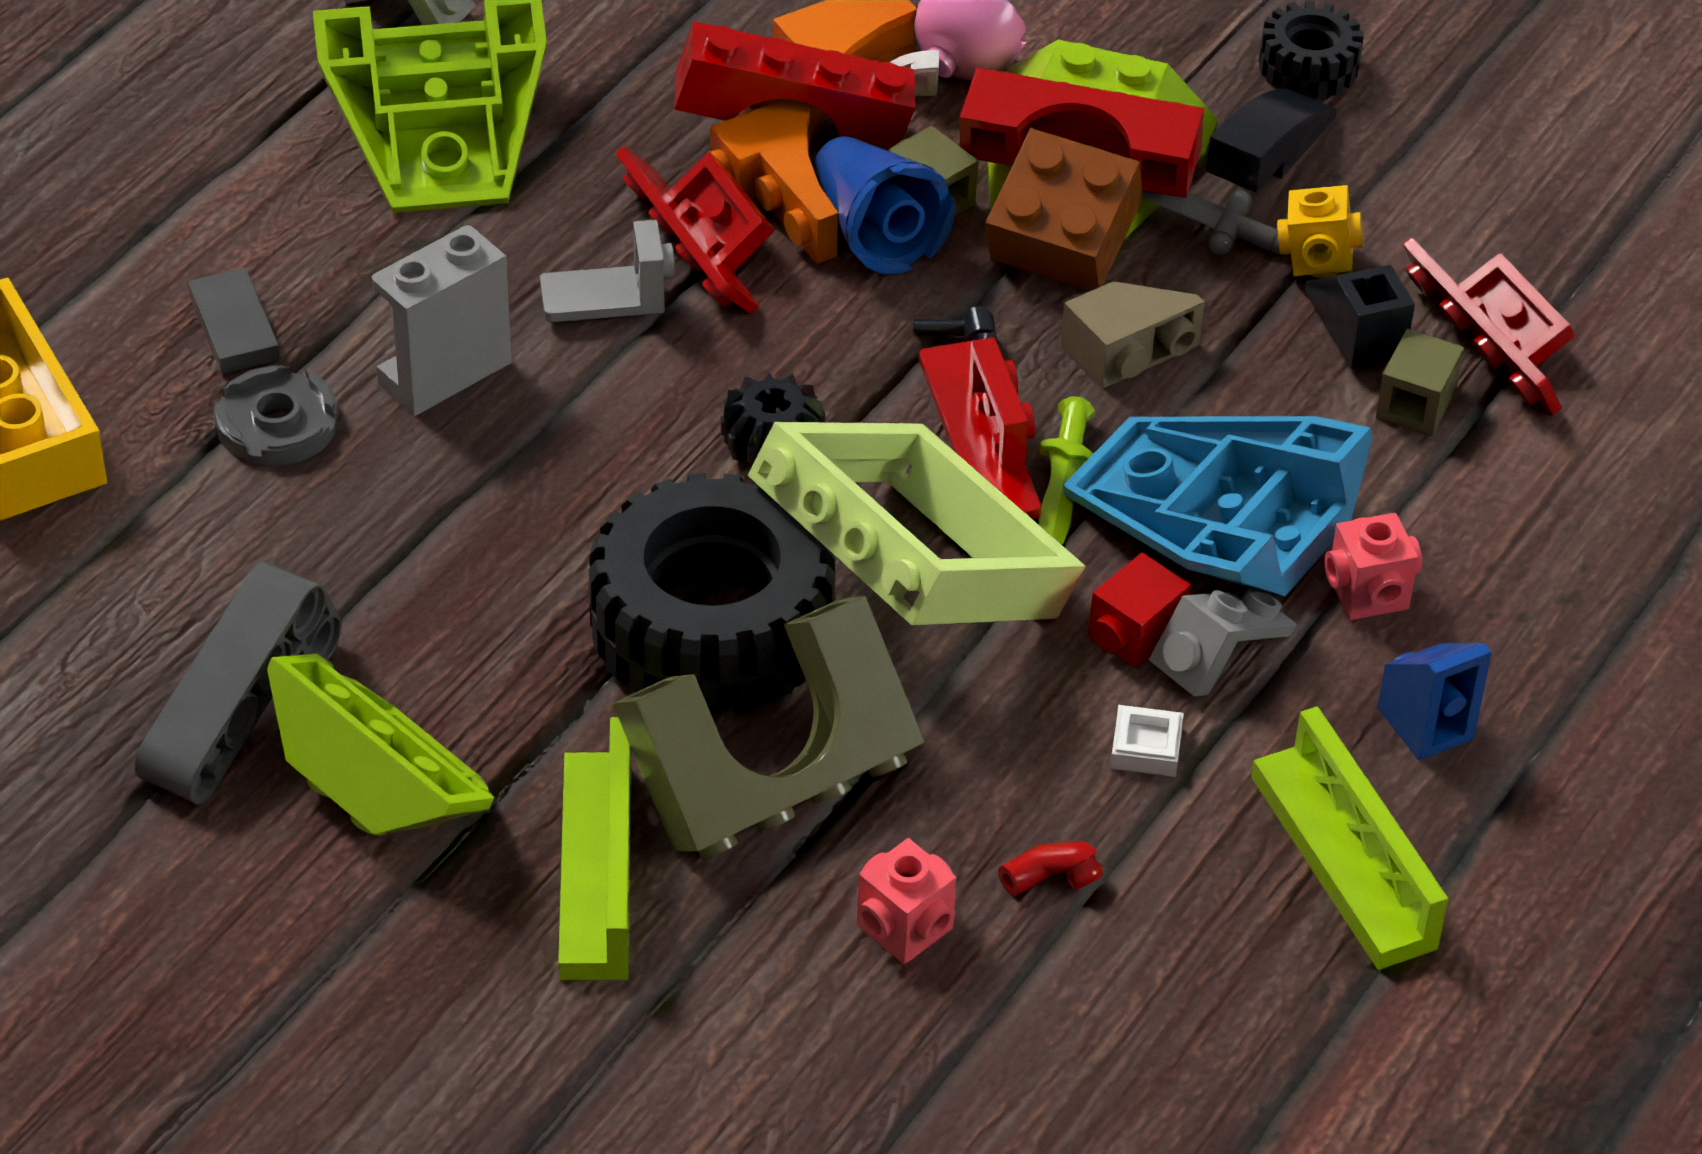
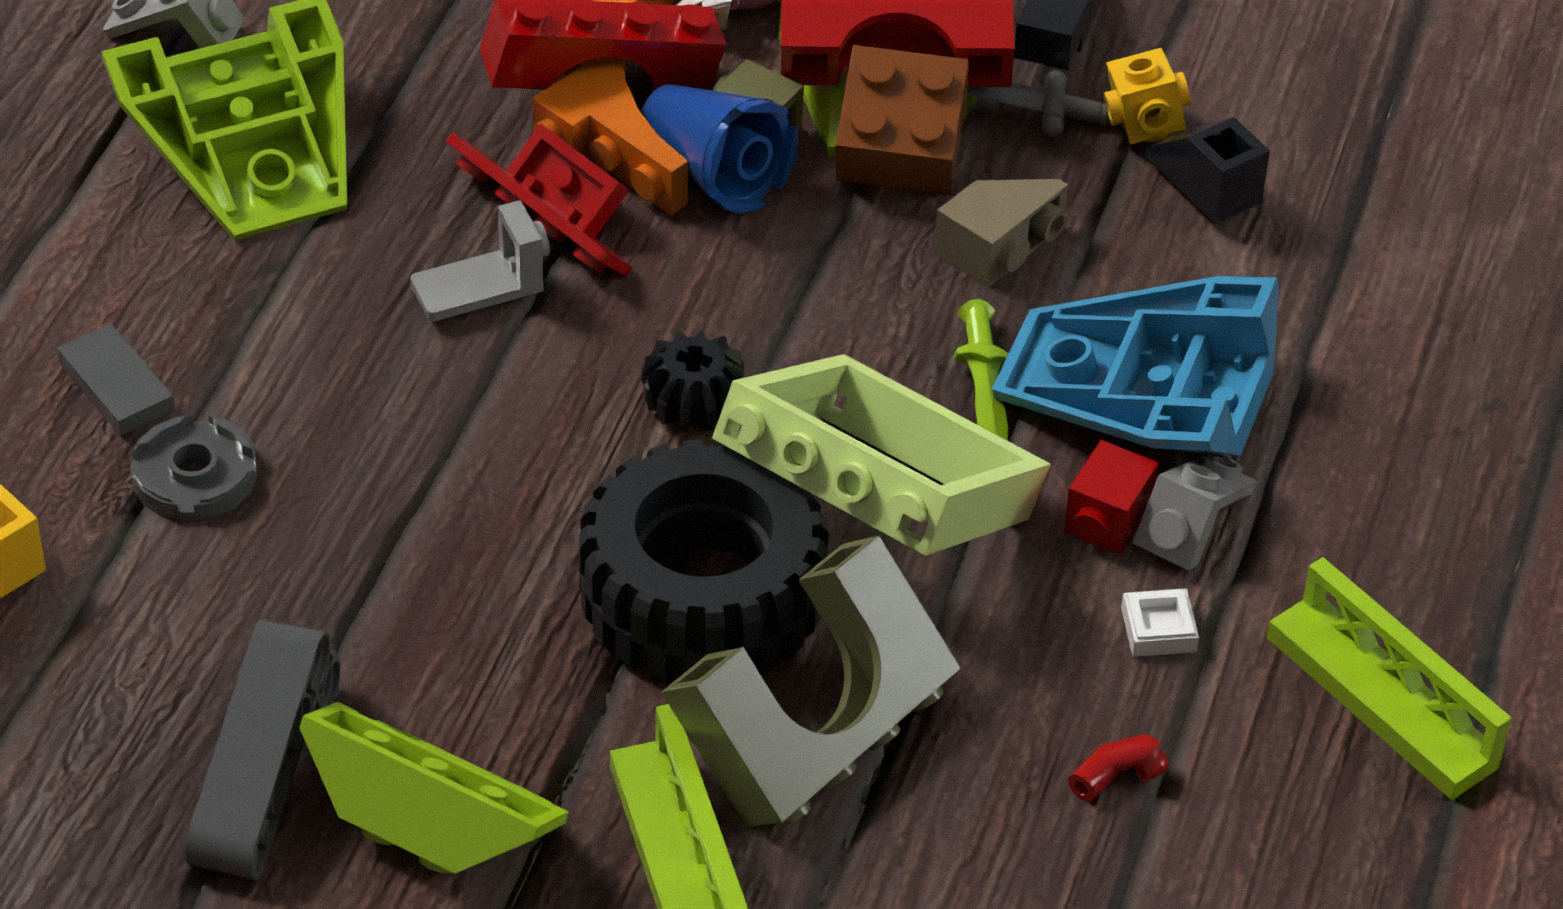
camera: 15 degrees left, 0 degrees up
(446, 318) = (350, 334): light grey panel -> none
(906, 900) = (998, 828): coral brick -> none
(975, 325) = (851, 247): black hand -> none
(984, 415) = (893, 329): red bracket -> none
(1373, 565) = (1312, 410): coral brick -> none
(1419, 382) = (1288, 225): olive brick -> none
(1435, 695) = (1417, 522): blue slope -> none
(1506, 315) = (1342, 146): bracket -> none

